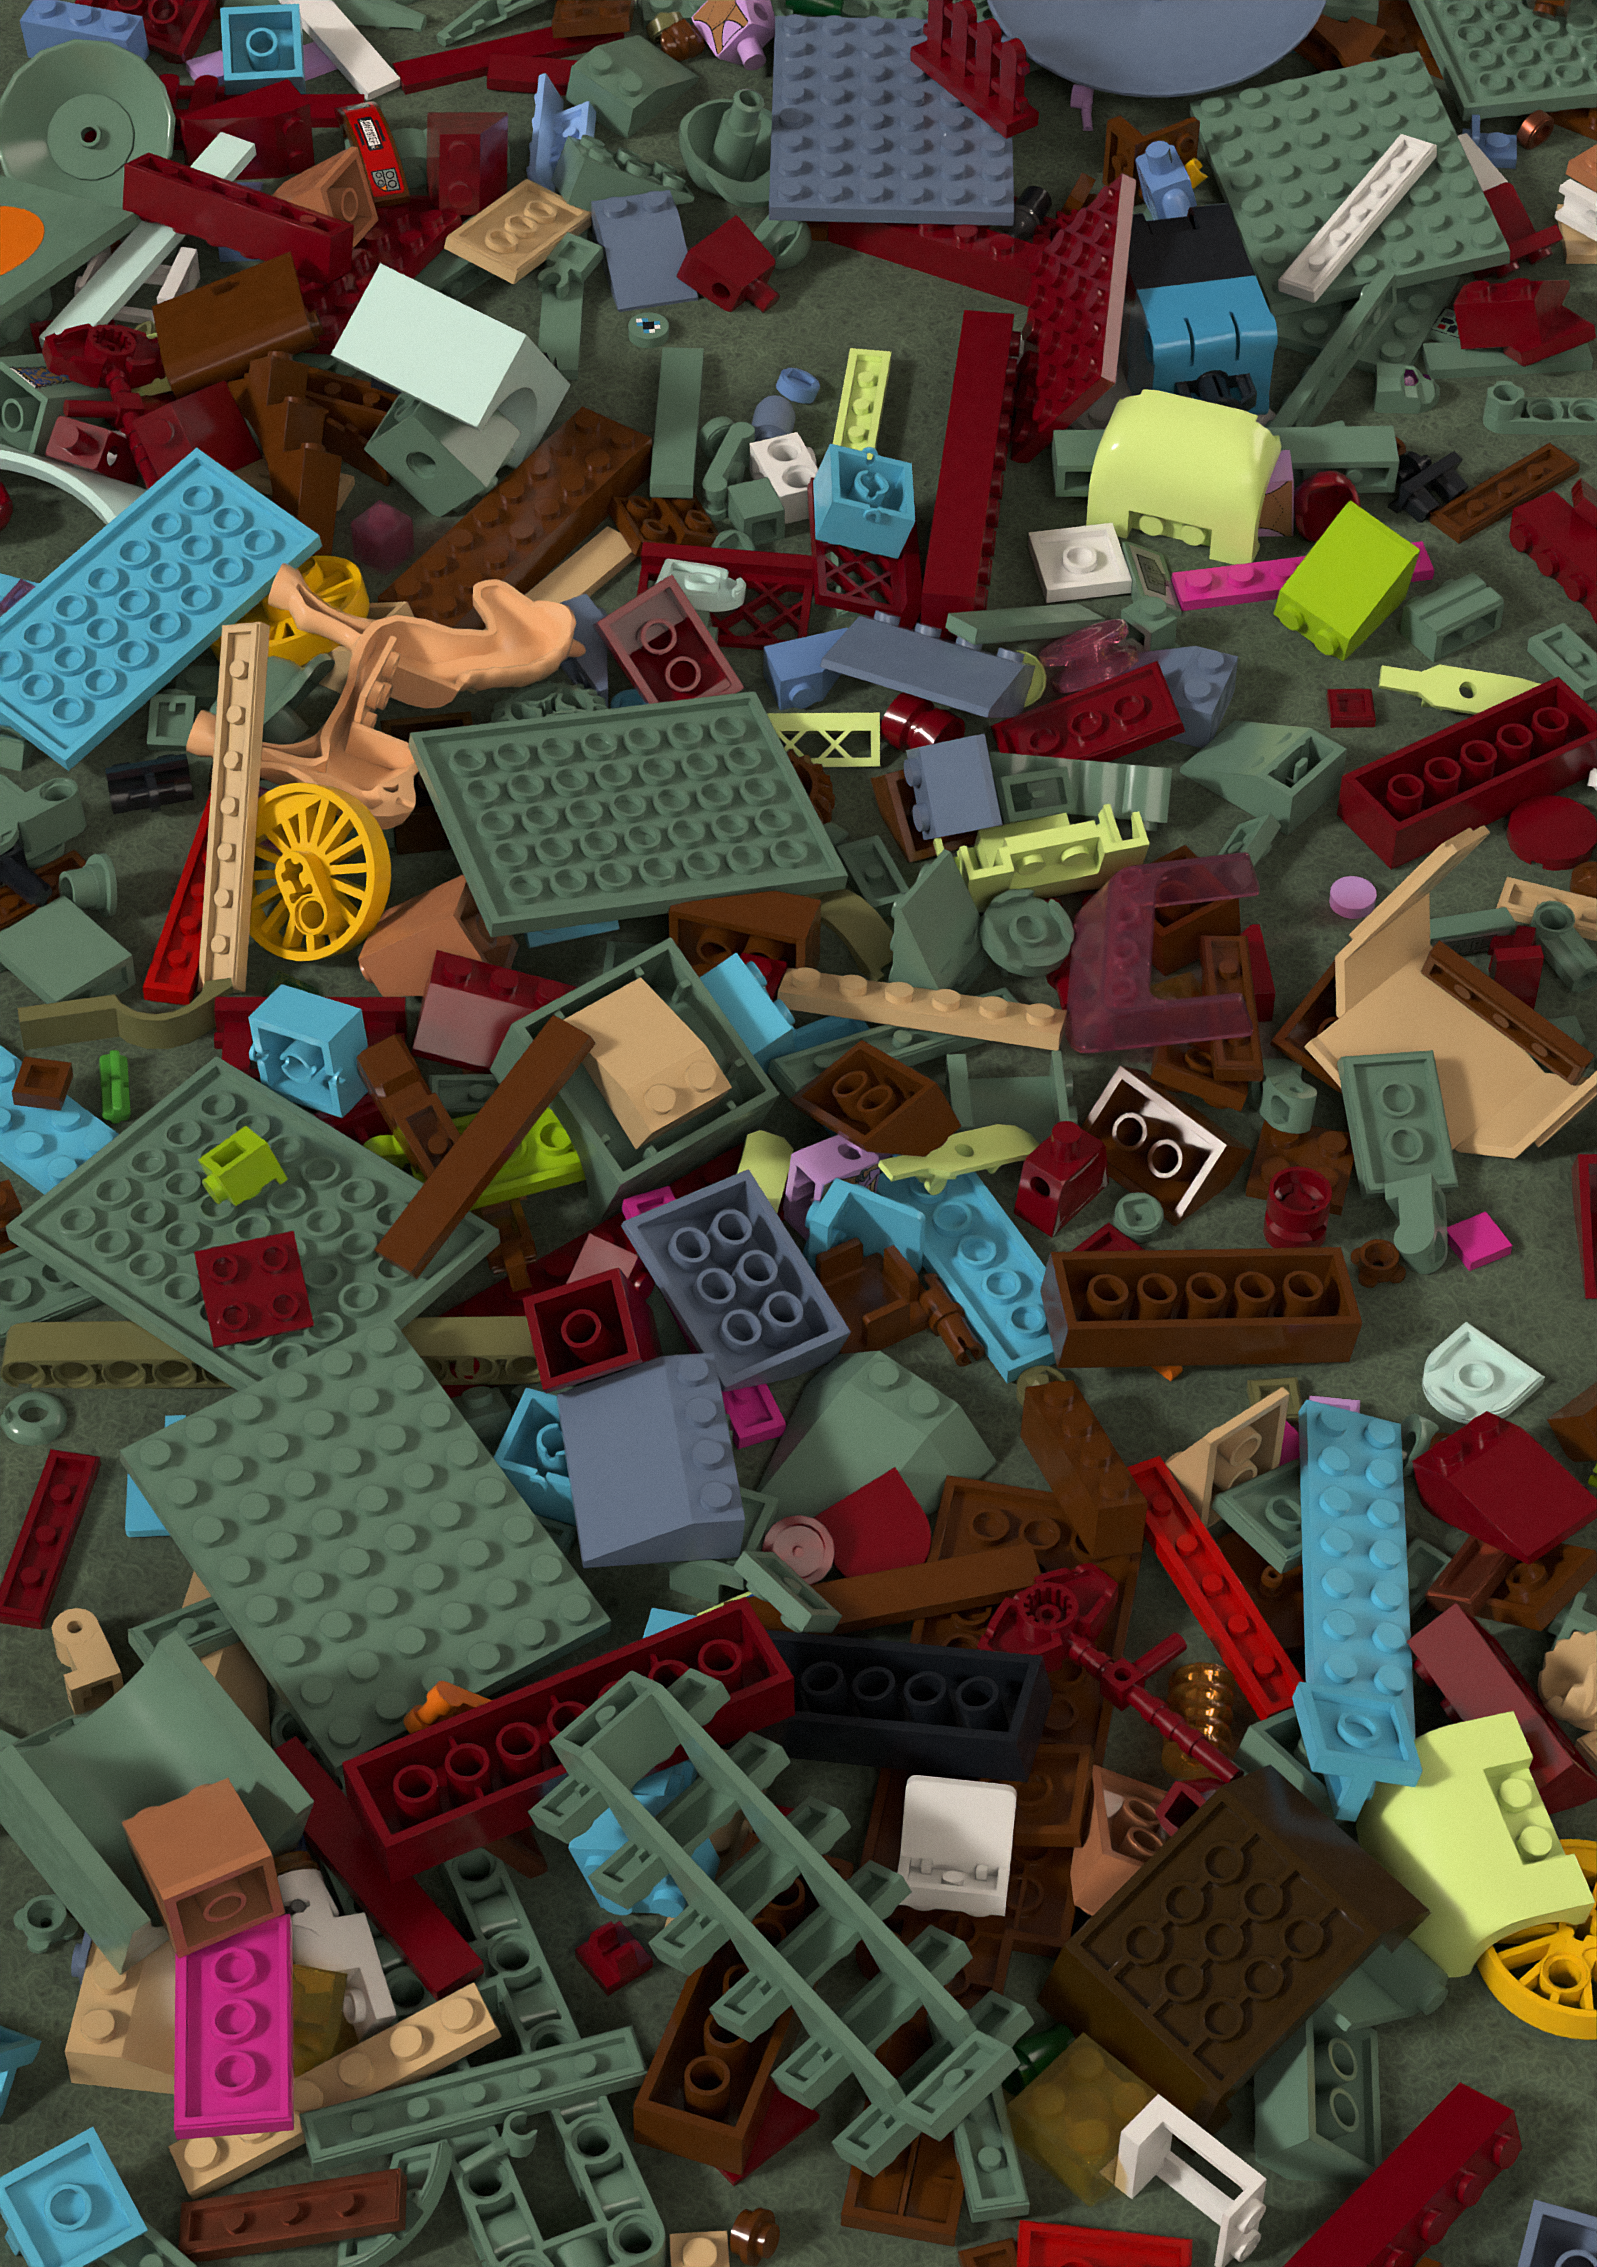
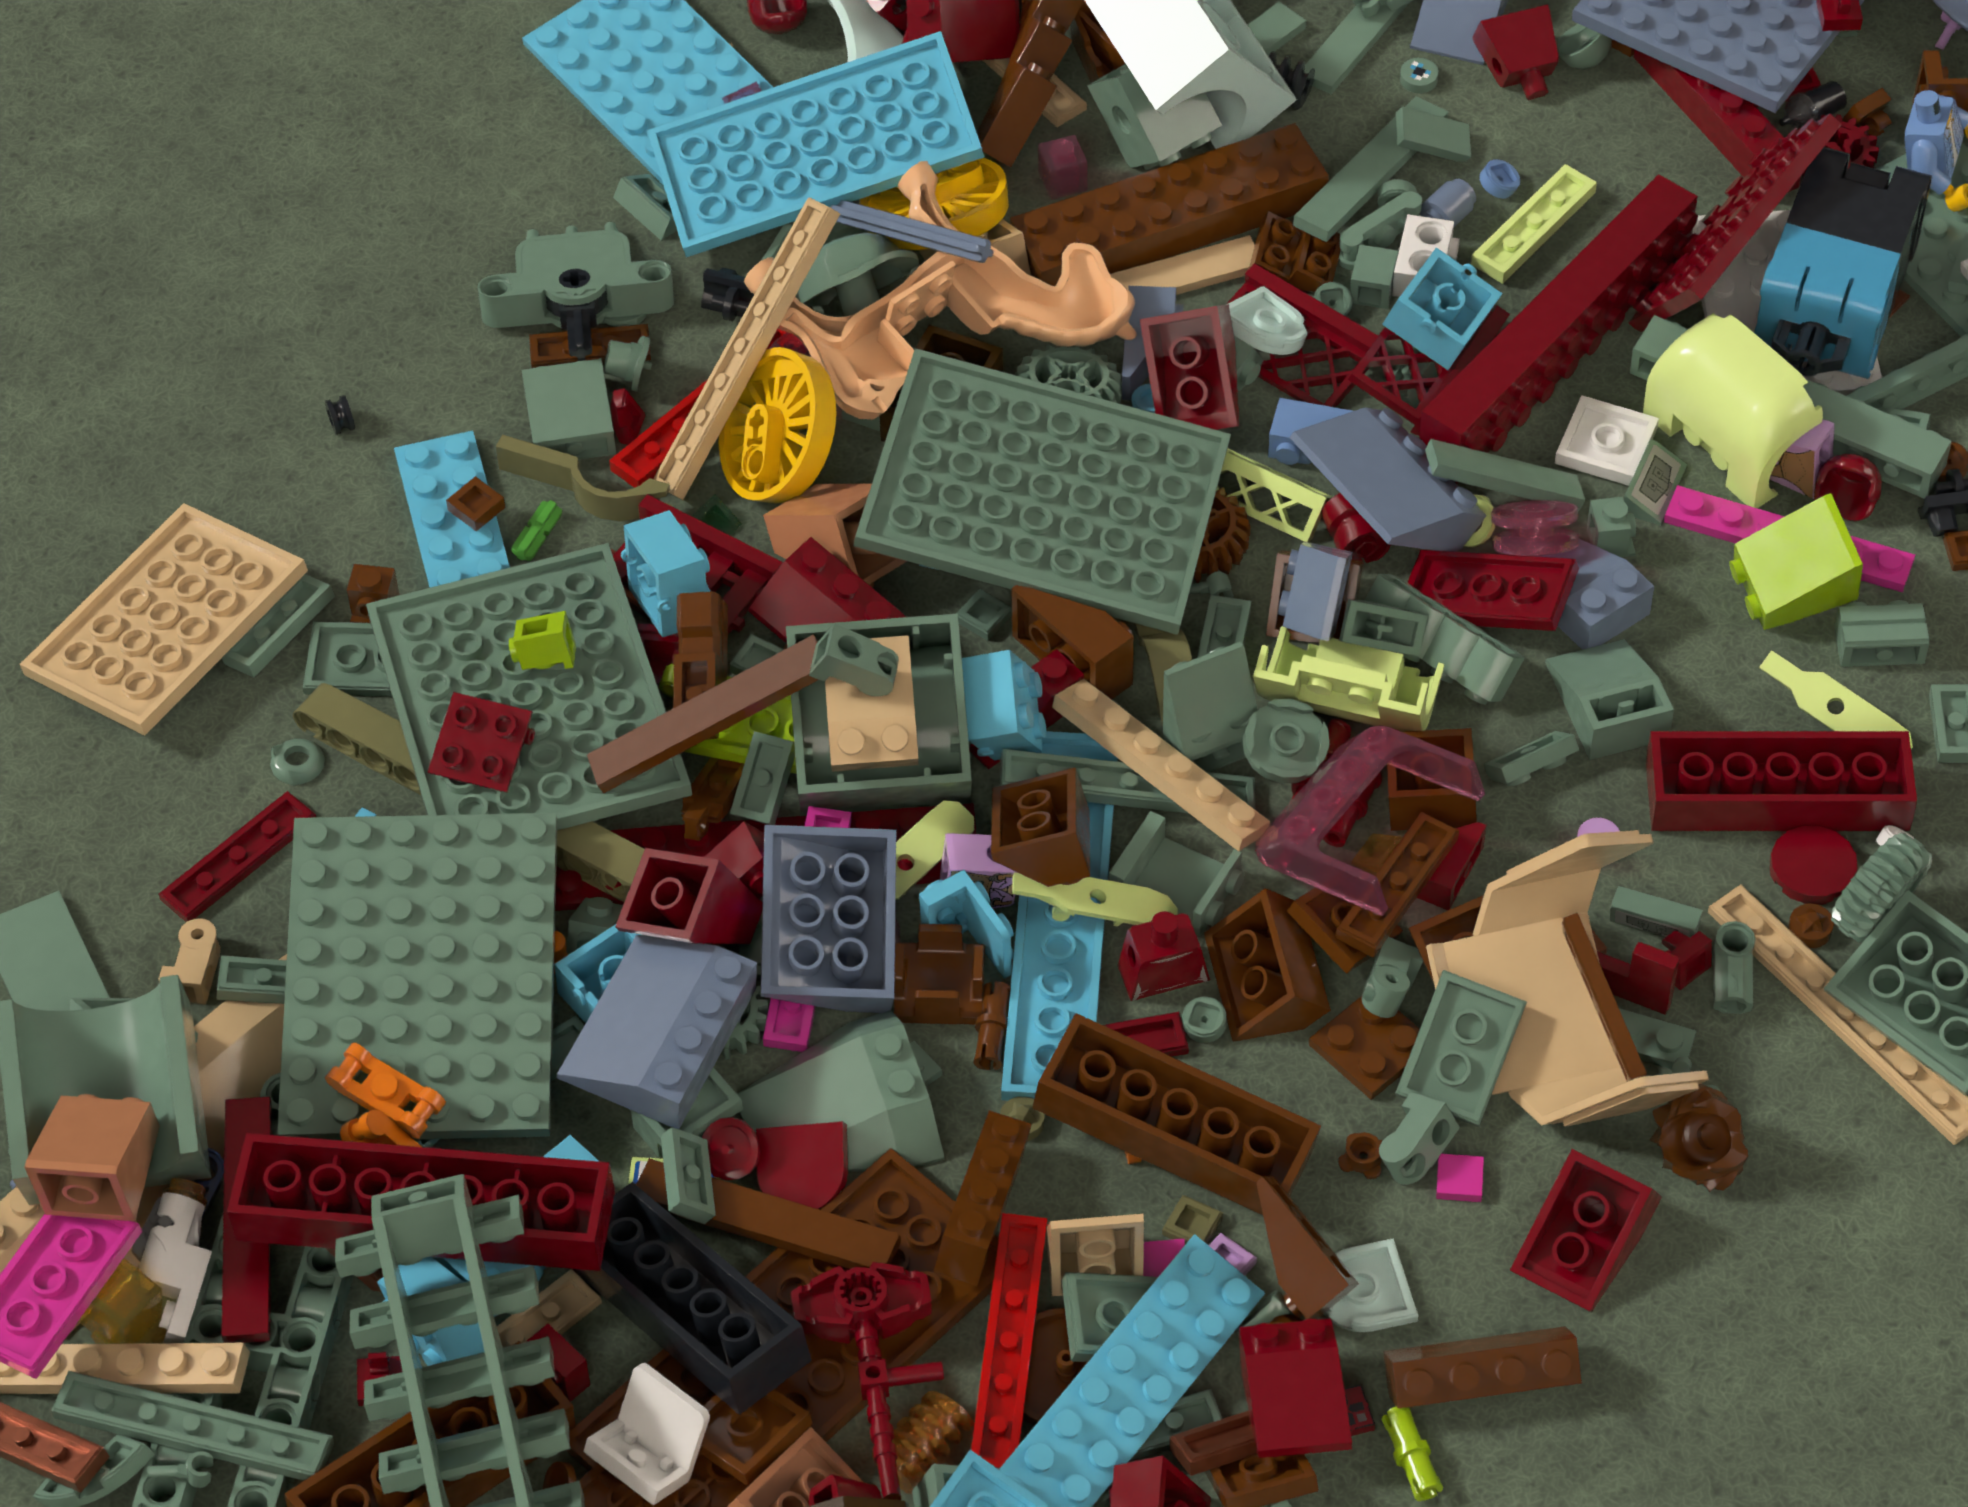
camera: 35 degrees right, 5 degrees up
(127, 937) = (626, 416): none -> dark red tile
(331, 630) = (913, 231): none -> sand blue axle
(424, 1662) = (385, 1090): none -> orange plate
(555, 1197) = (764, 779): none -> sand green plate
(620, 1014) = (855, 661): none -> sand green leg
(710, 370) = (1433, 134): none -> sand green tile
(1297, 1208) = (1325, 1078): dark red wheel -> none
(1350, 708) = (1733, 674): dark red tile -> none
(1423, 1372) = (1301, 1257): none -> reddish brown slope

